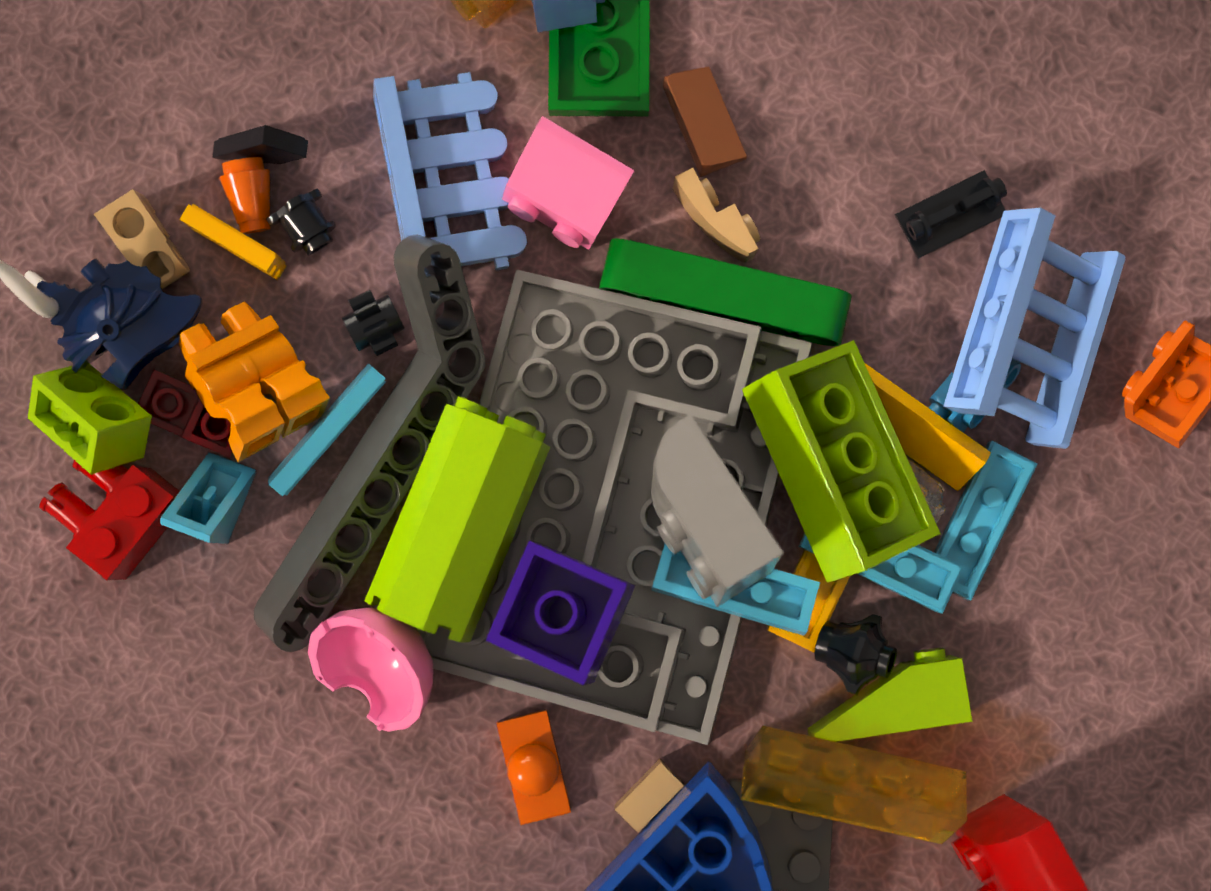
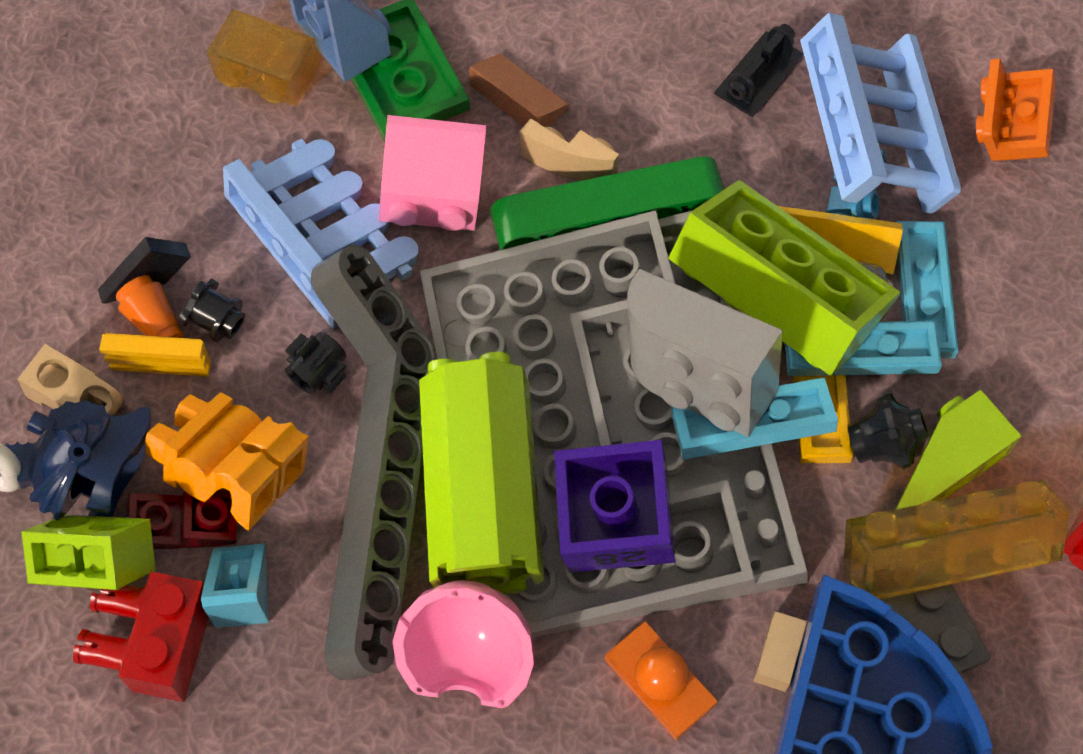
camera: 25 degrees left, 20 degrees down
(326, 430) = (316, 471): medium azure tile -> none

